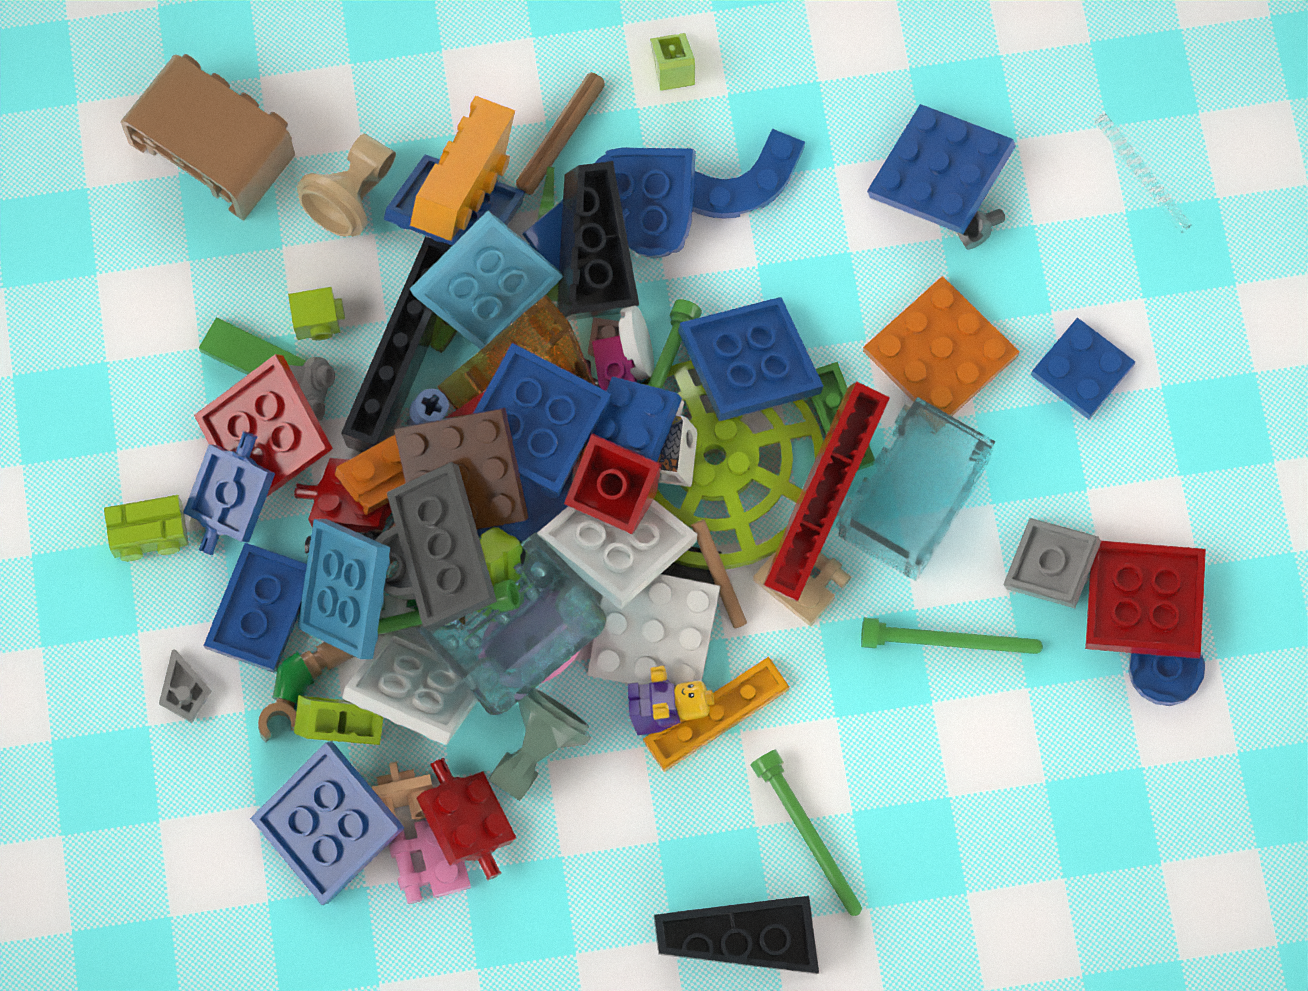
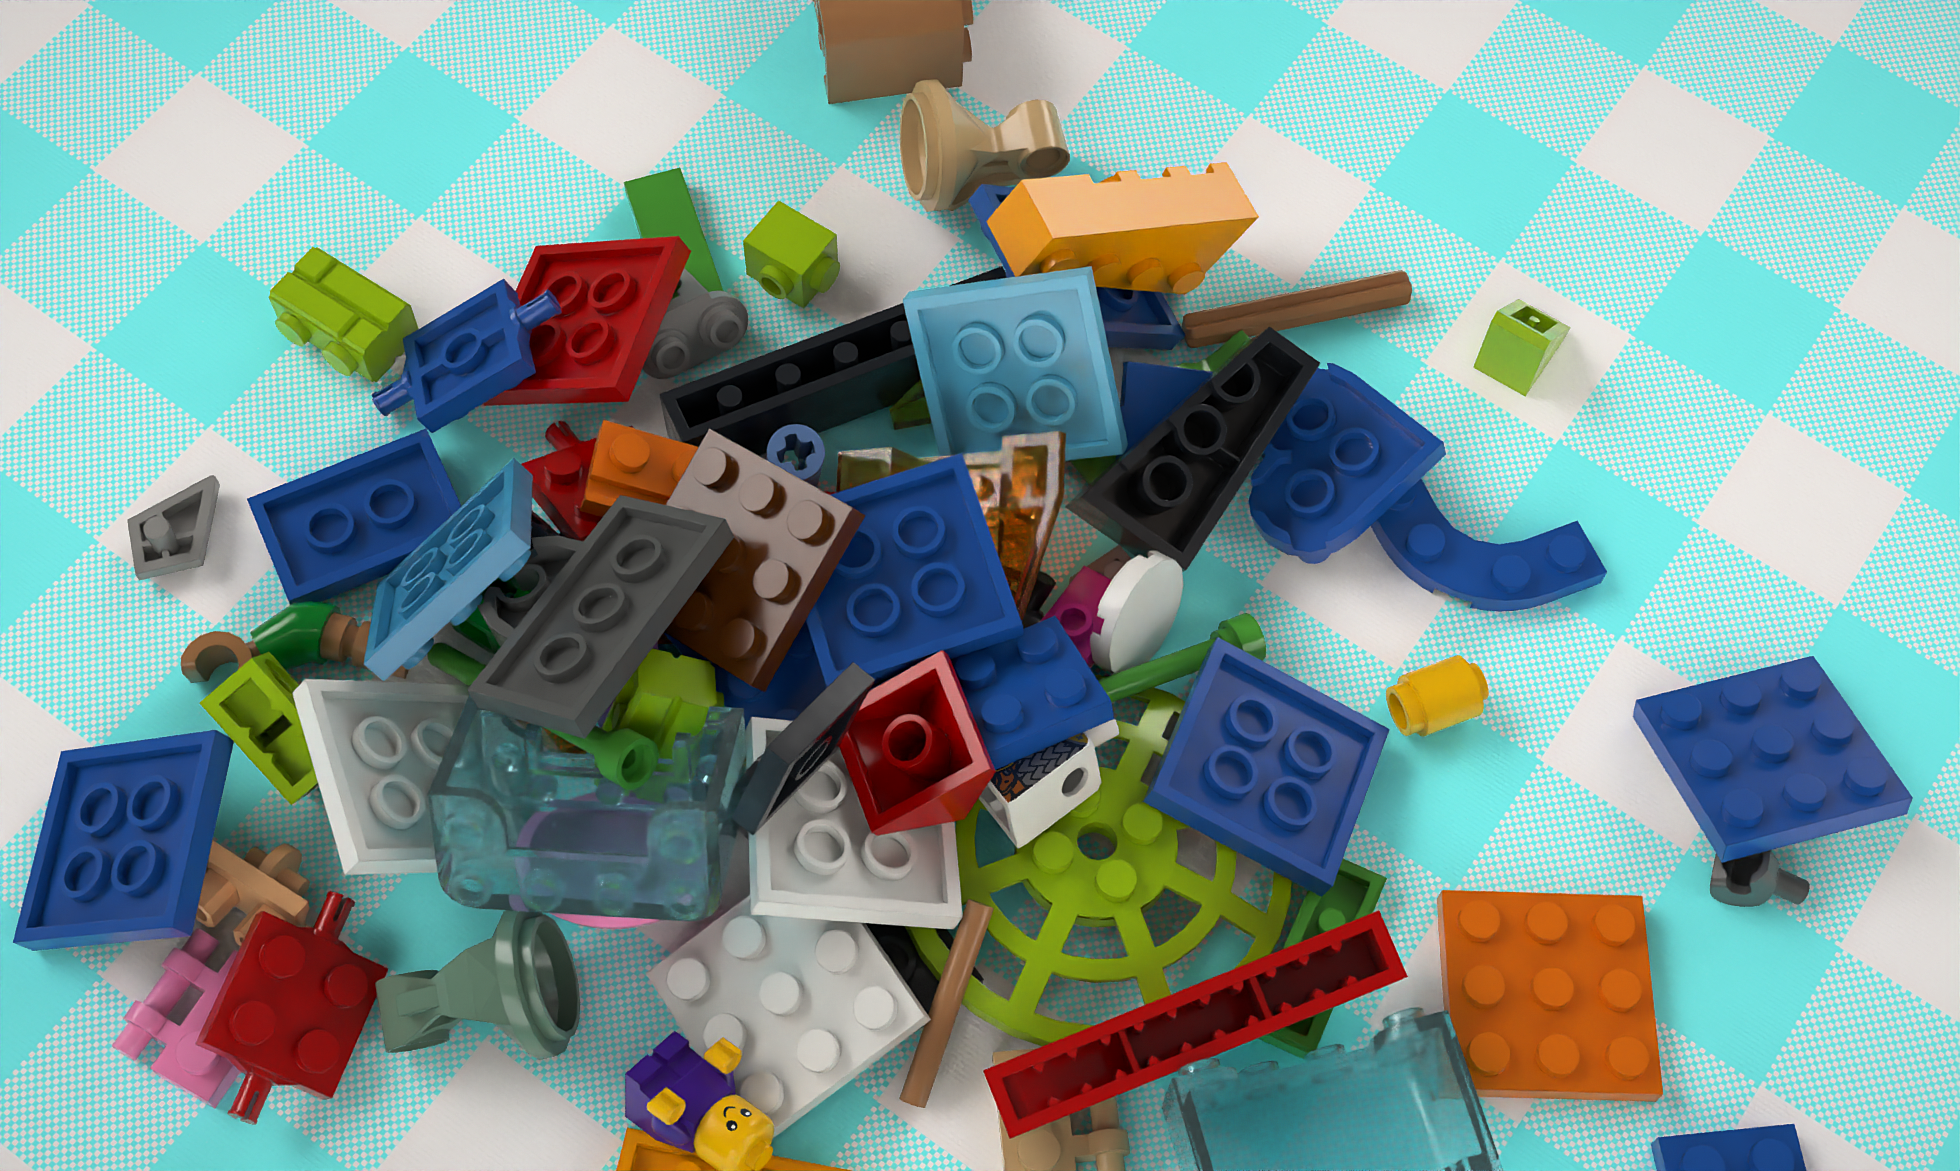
camera: 40 degrees right, 10 degrees down
(581, 524) = (800, 749): none -> black plate
(787, 264) = (1437, 696): none -> yellow brick

